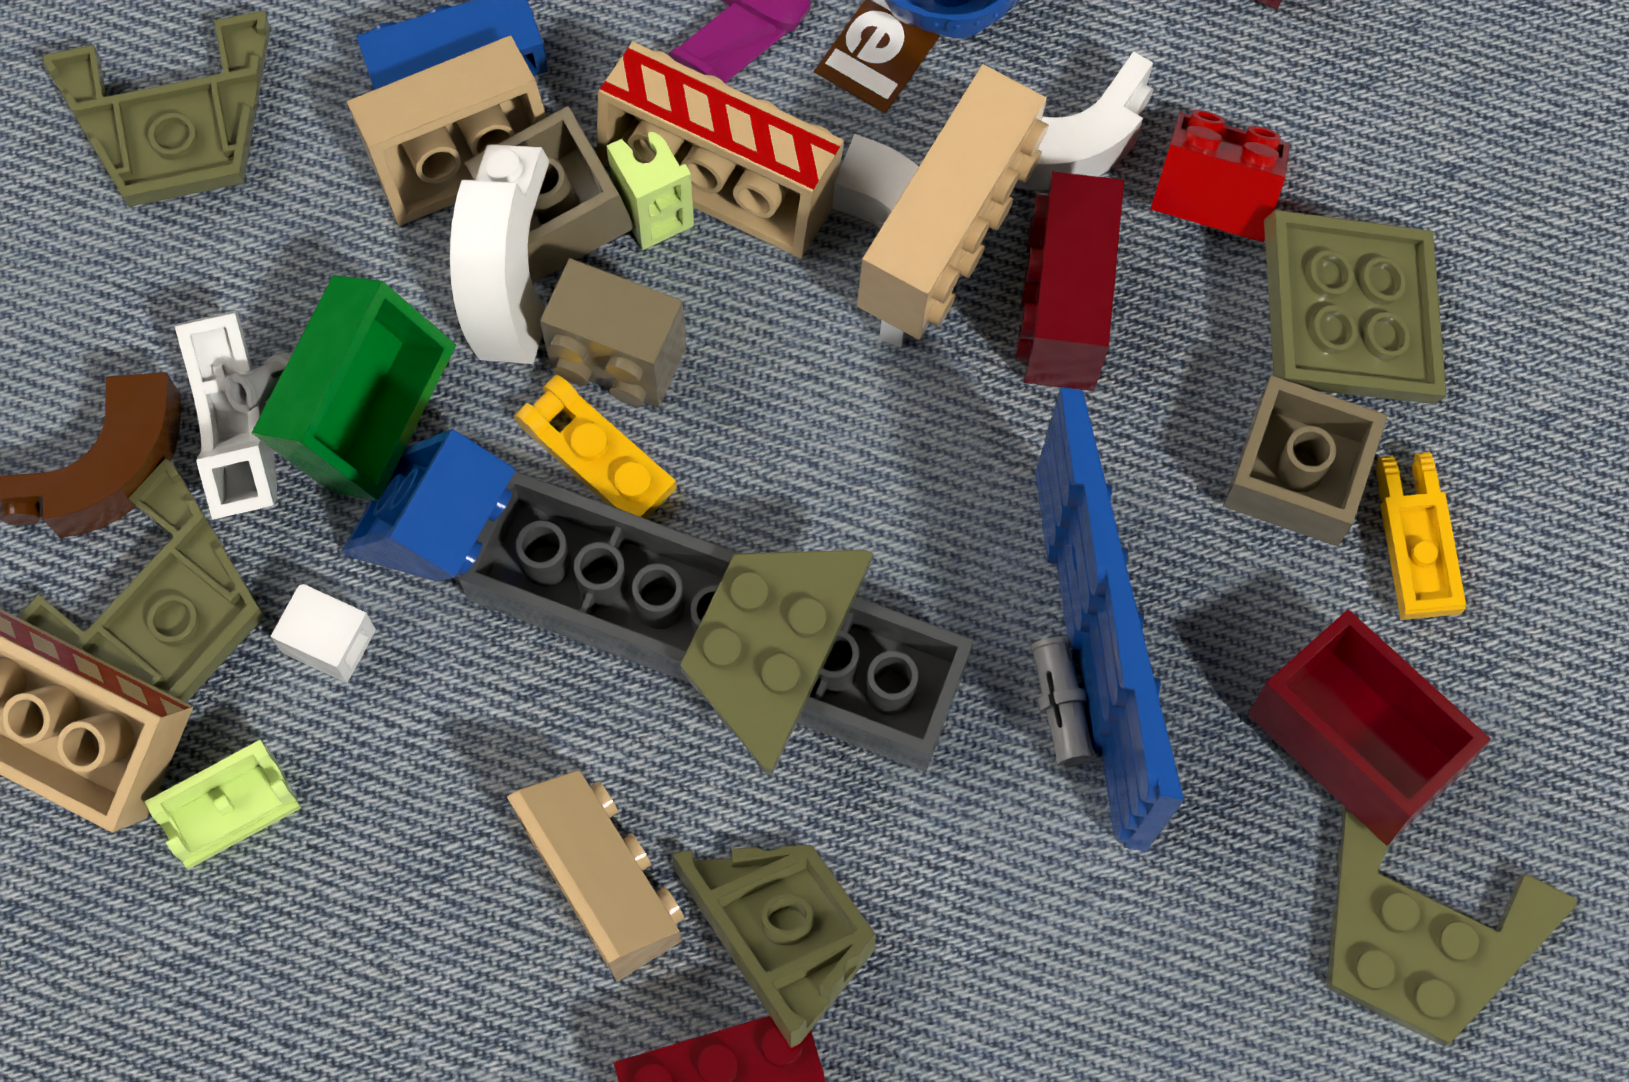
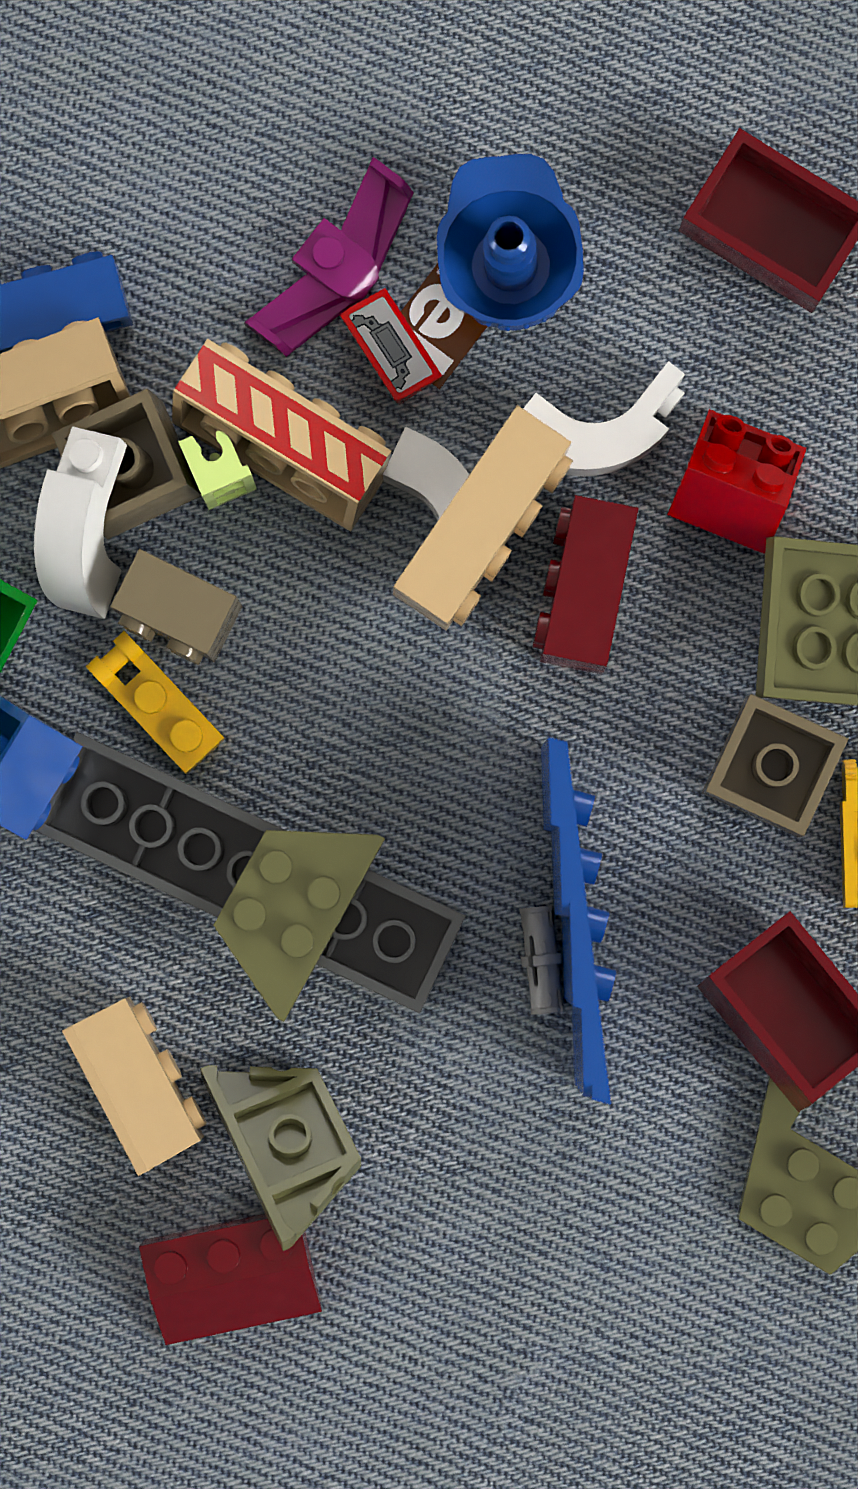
camera: 10 degrees right, 15 degrees up
(828, 69) = (391, 345): none -> slope

